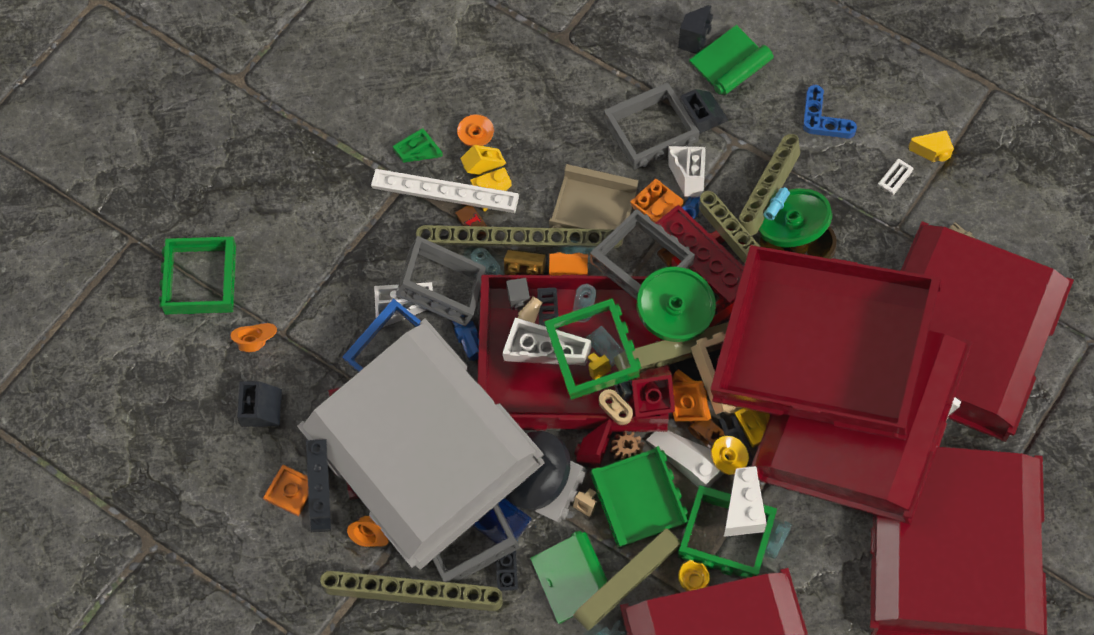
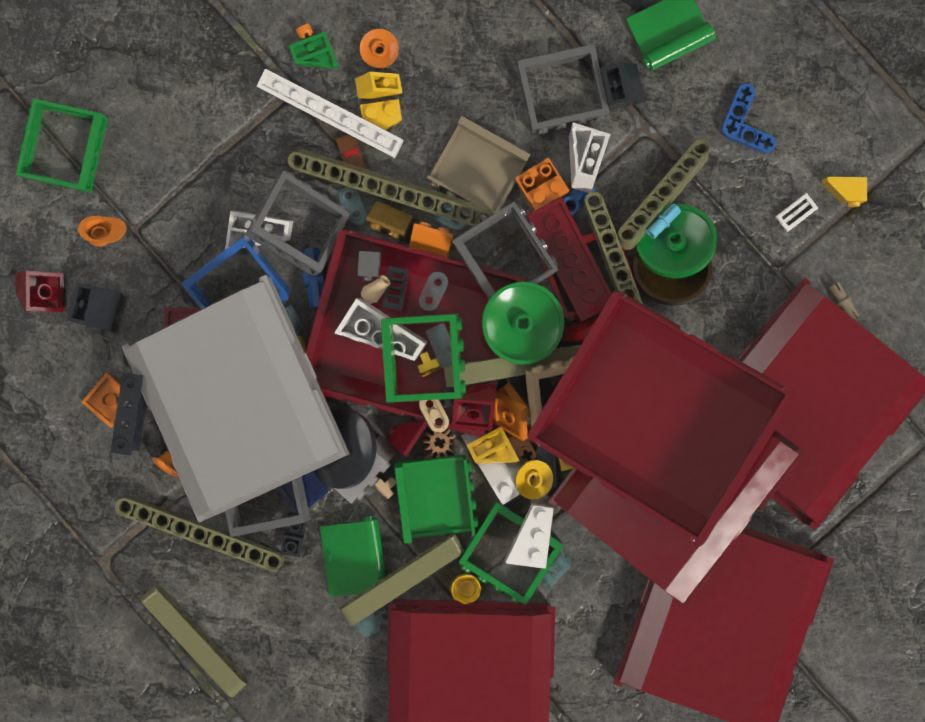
camera: 10 degrees right, 25 degrees up
(202, 402) = (40, 291): none -> dark red slope
(403, 132) = (304, 30): none -> orange hinge
(681, 436) = (493, 448): none -> yellow wing

